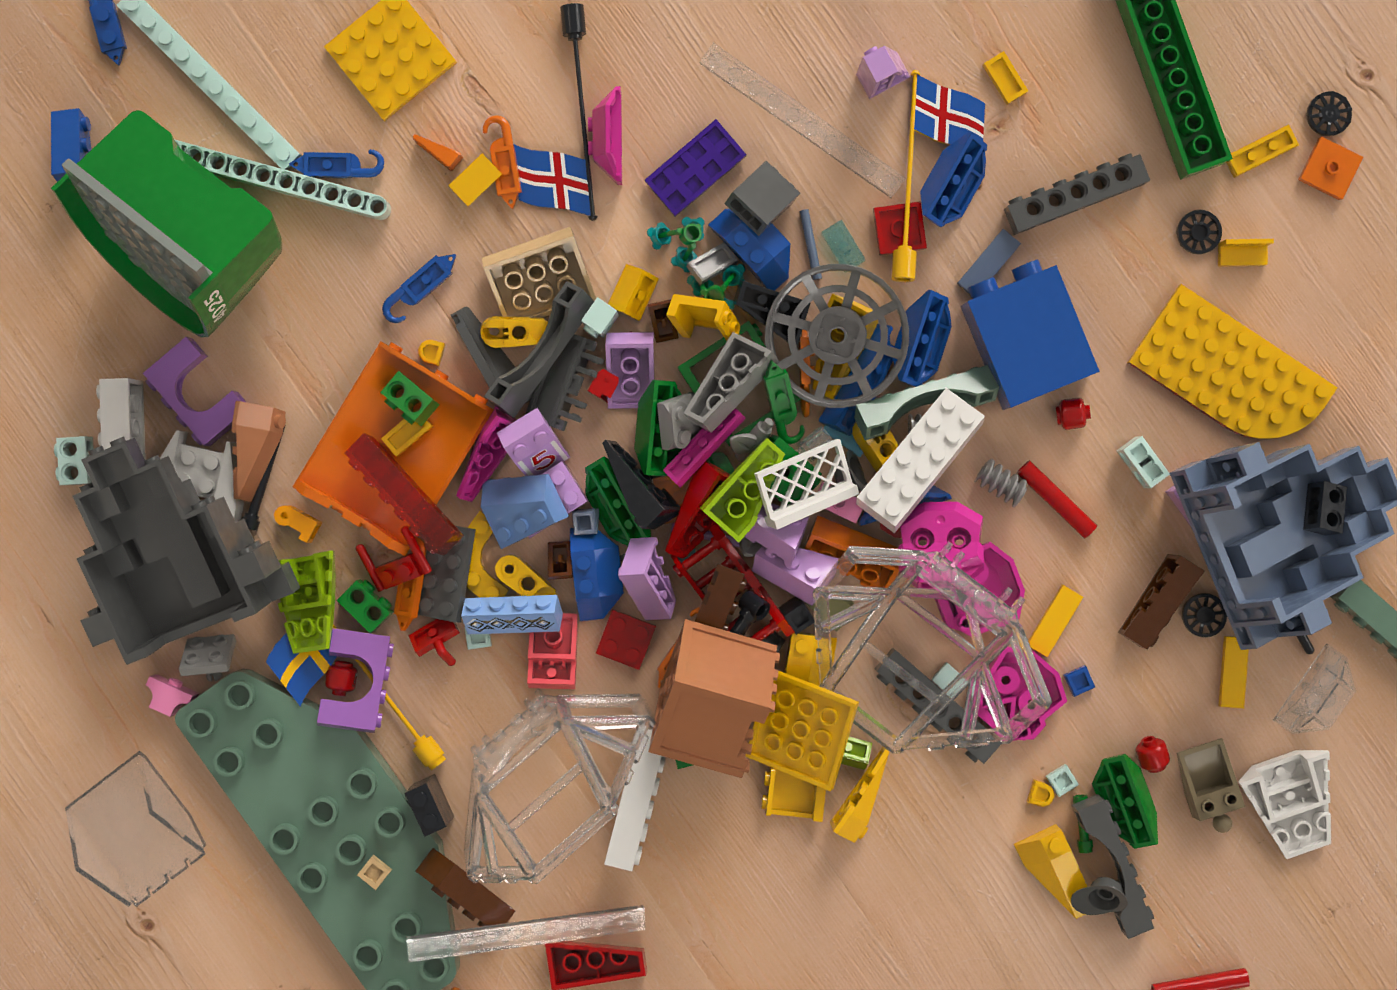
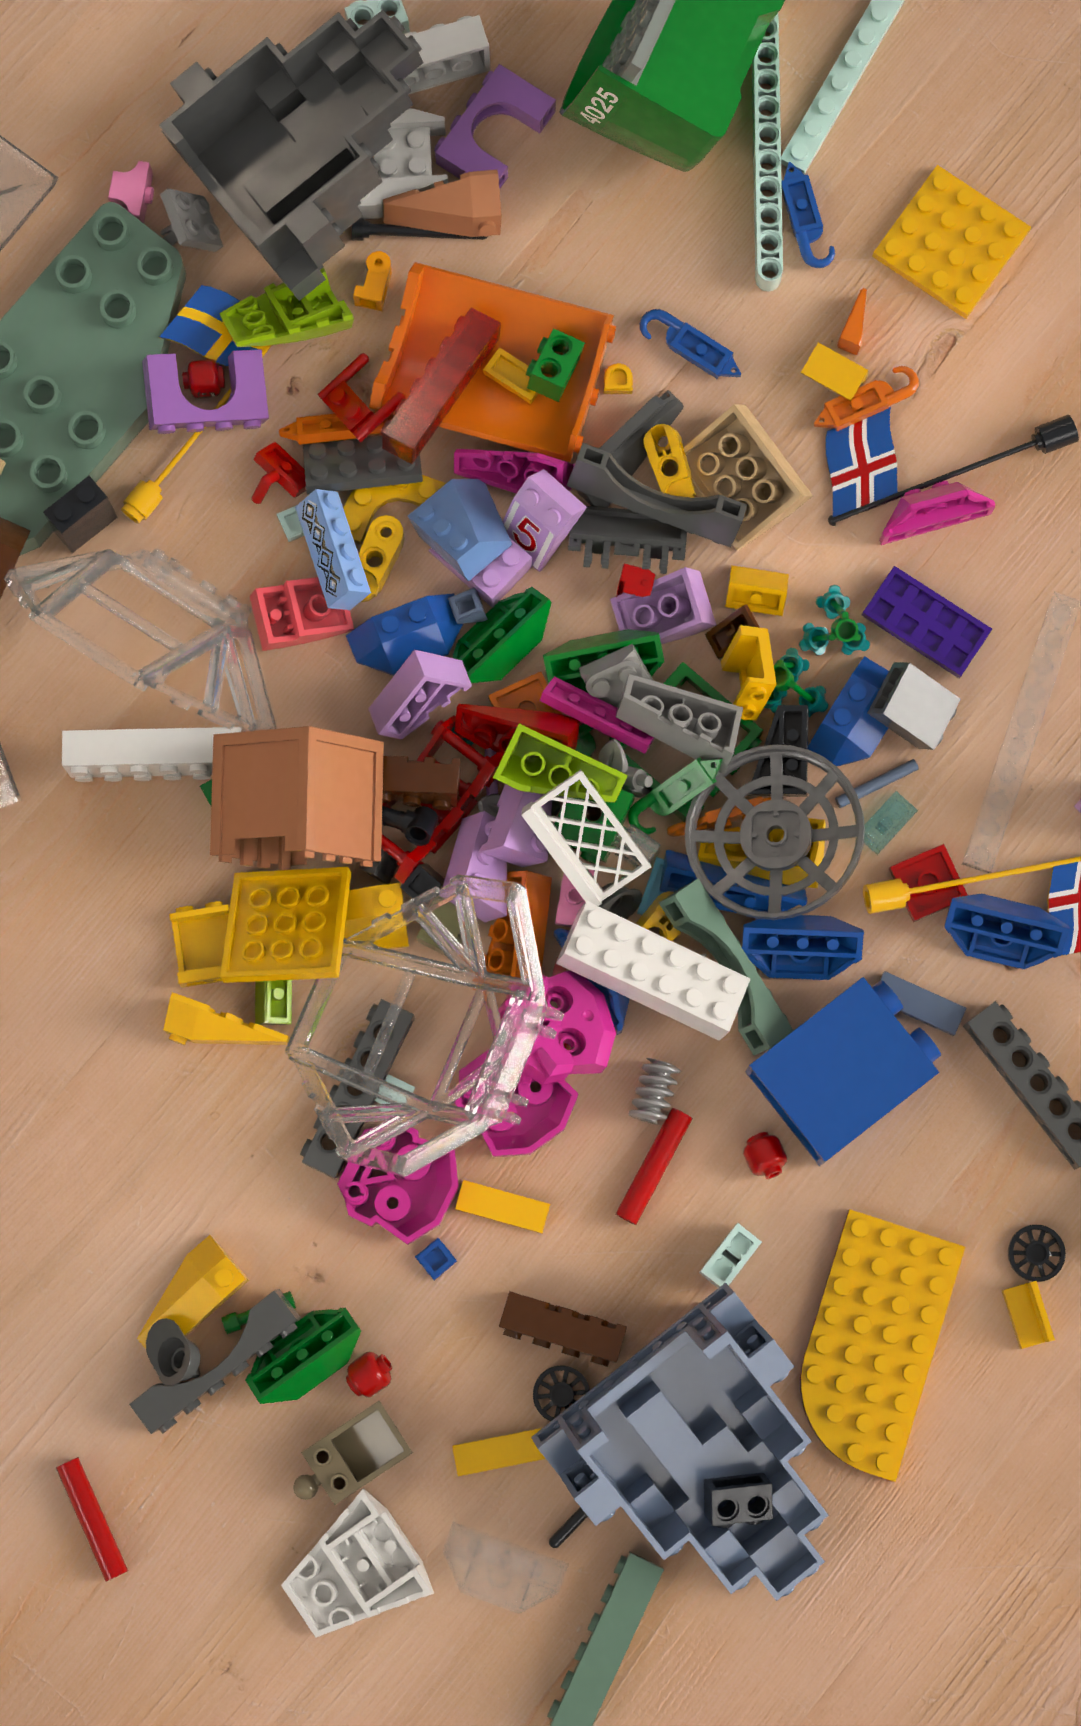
camera: 75 degrees right, 10 degrees down
(361, 610) = (290, 381): green brick -> none
(559, 560) = (410, 587): reddish brown slope -> none
(599, 318) = (713, 555): light aqua brick -> none
(625, 639) = (338, 694): red plate -> none
(645, 501) = (515, 659): black wedge -> none
(712, 263) = (818, 670): light grey tile -> none
(1040, 794) = (282, 1250): yellow tile -> none
(1062, 780) = (306, 1272): light aqua tile -> none

